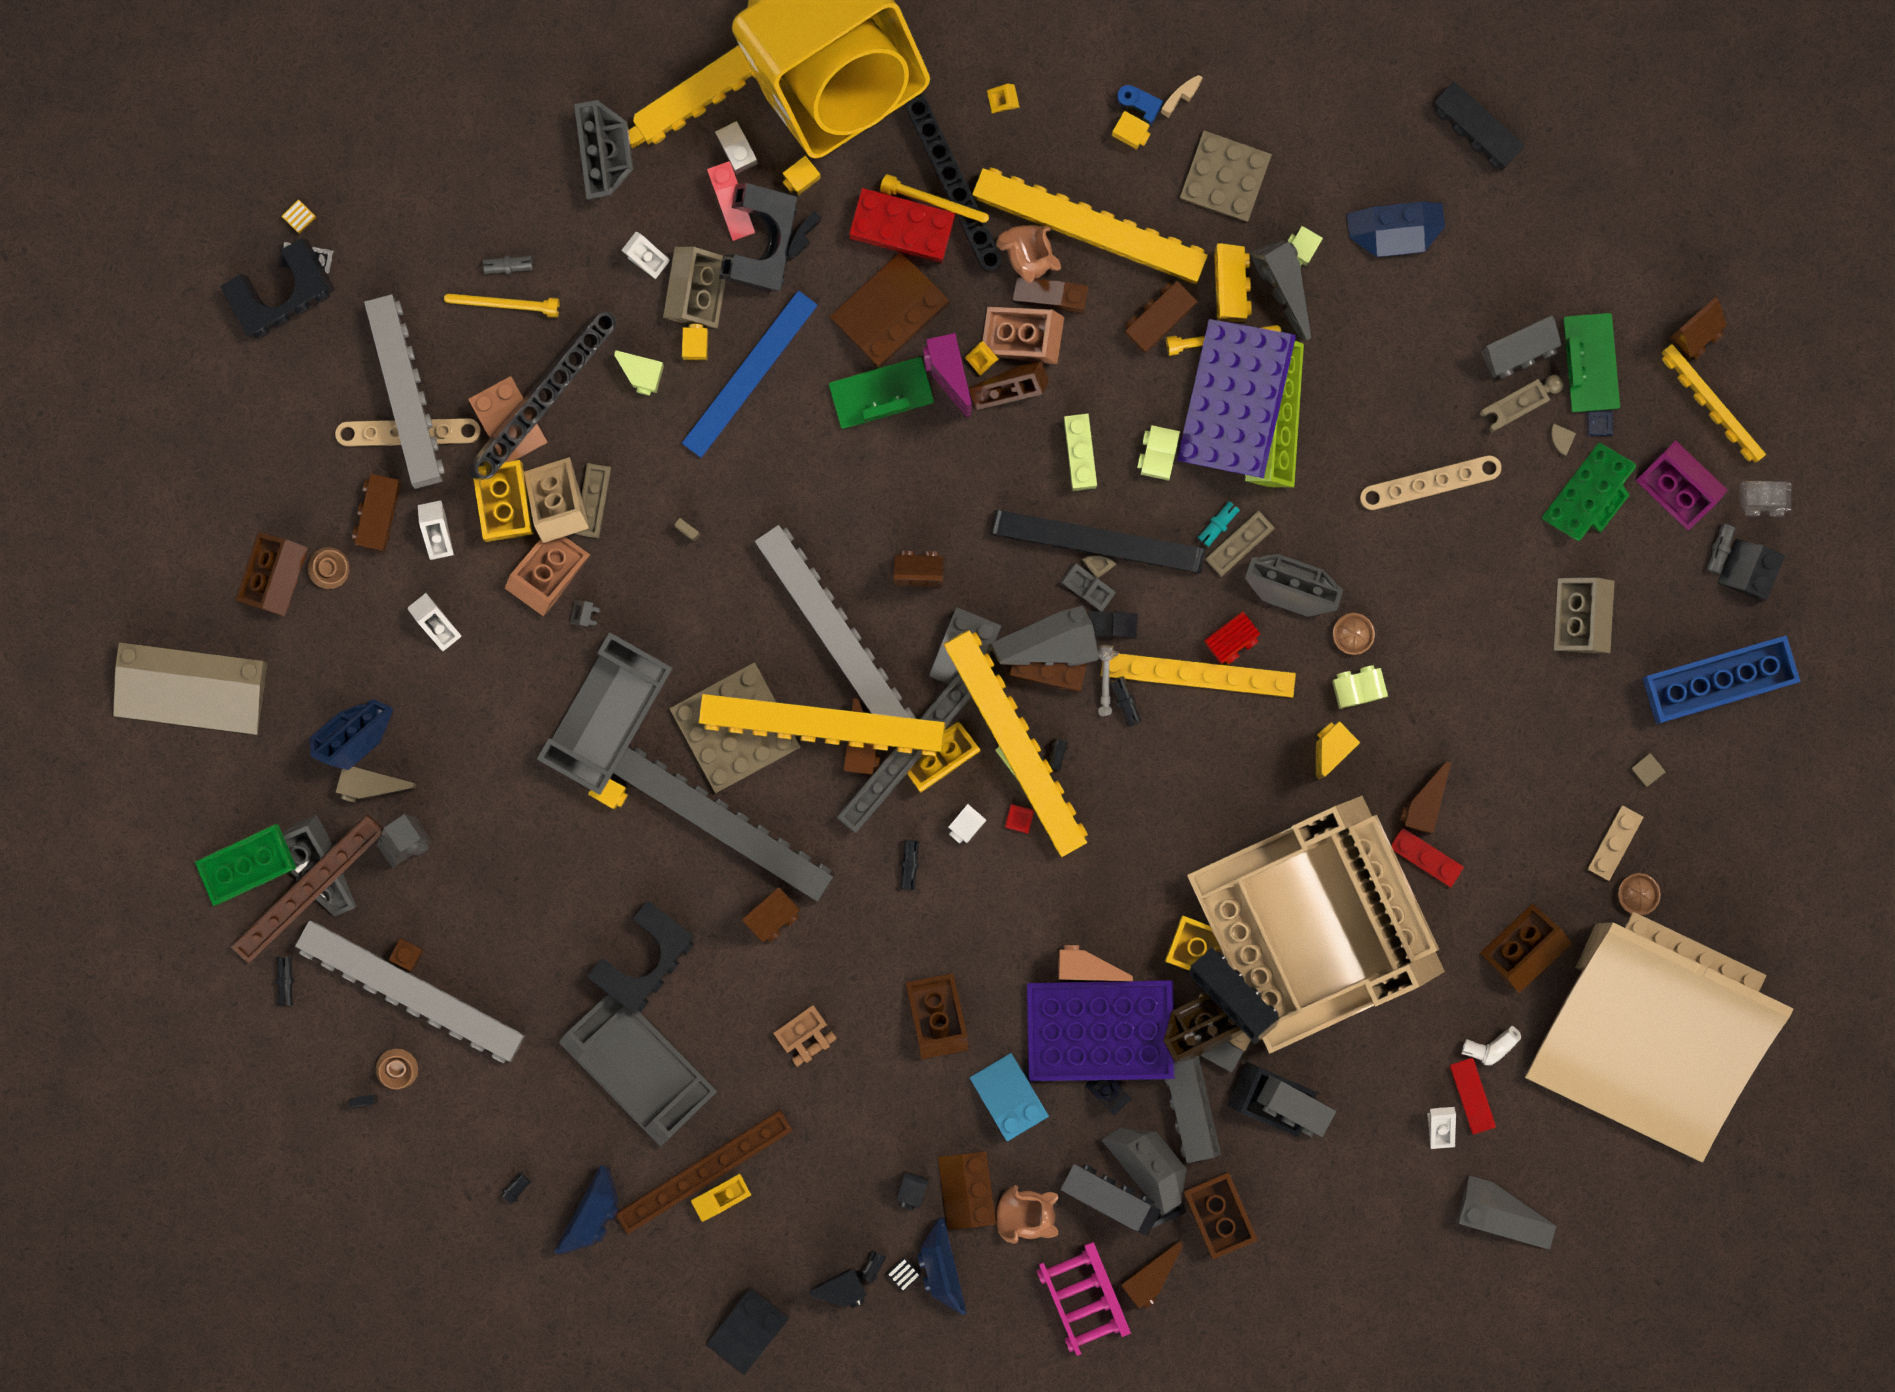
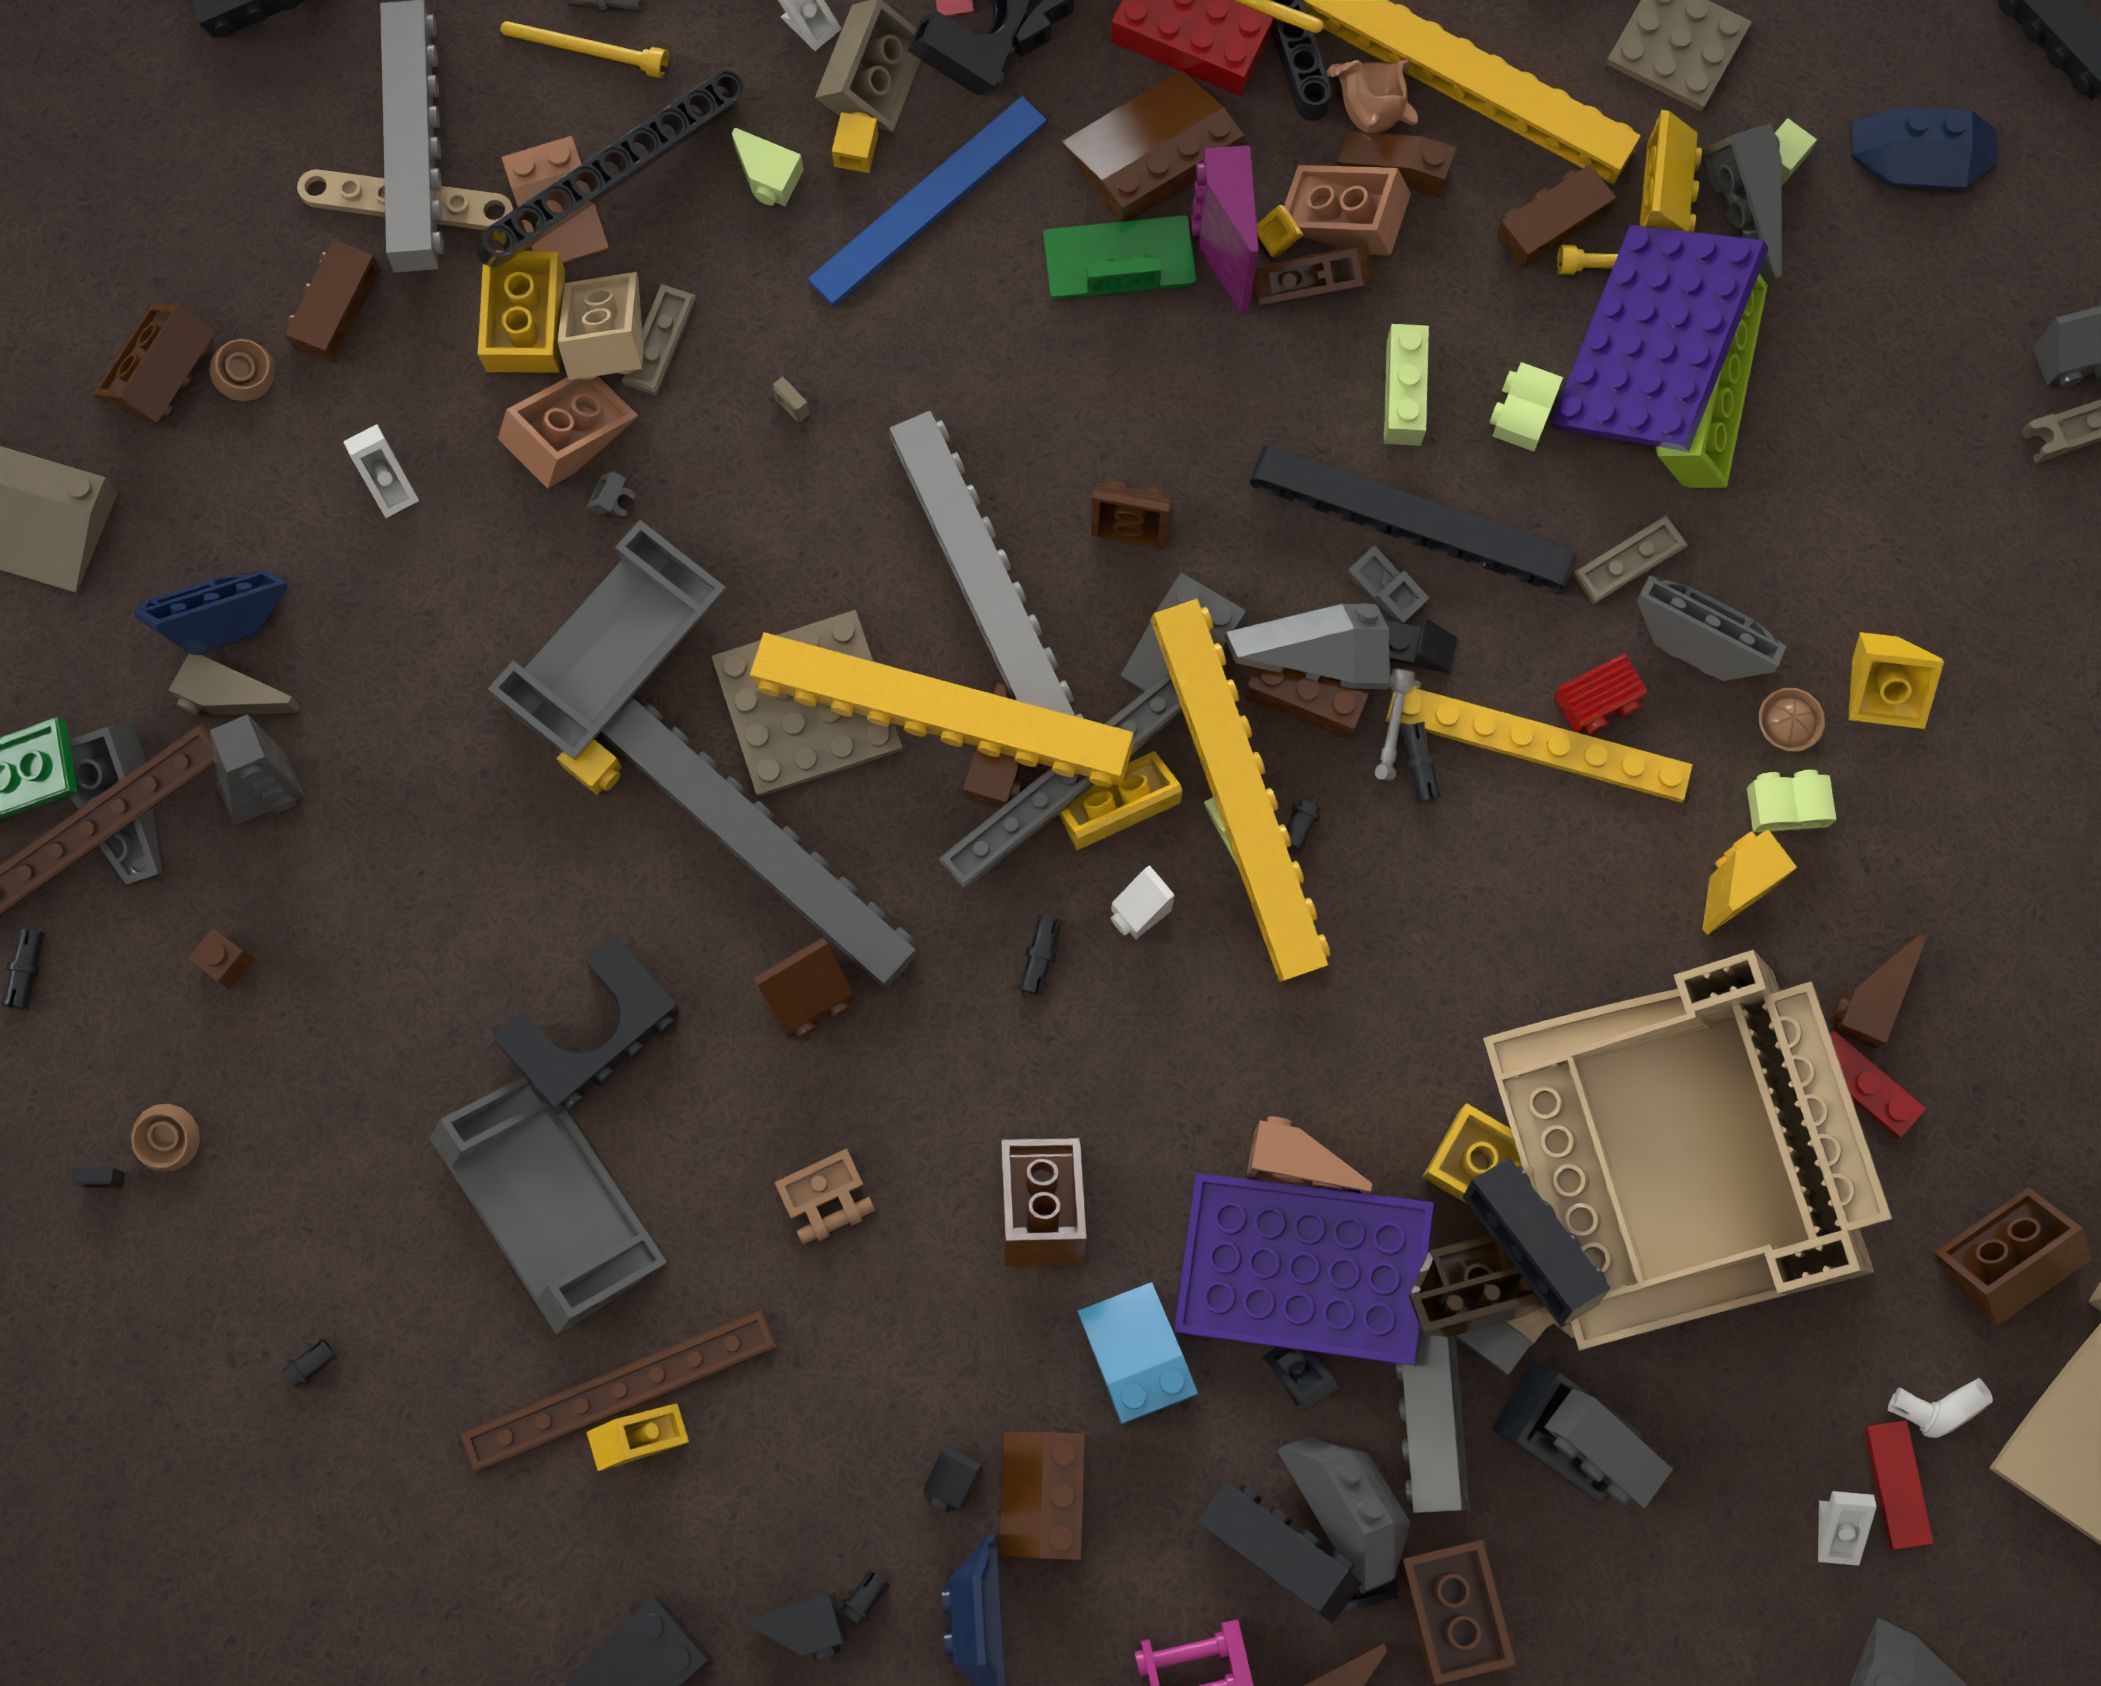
camera: 10 degrees right, 10 degrees down
(410, 991) = (215, 1018): light grey brick -> none
(435, 530) = (412, 339): white slope -> none
(592, 1214) = (421, 1428): dark blue wedge -> none
(903, 1274) = (913, 1620): tile -> none
(1019, 818) = (1225, 914): red tile -> none
(1026, 1215) = (1133, 1553): nougat hair -> none
(1098, 564) = (1408, 555): dark tan tile -> none
(1218, 524) = (1602, 525): teal pin -> none
(1413, 598) = (1892, 681): none -> yellow slope
(1430, 483) = (1935, 519): tan plate -> none

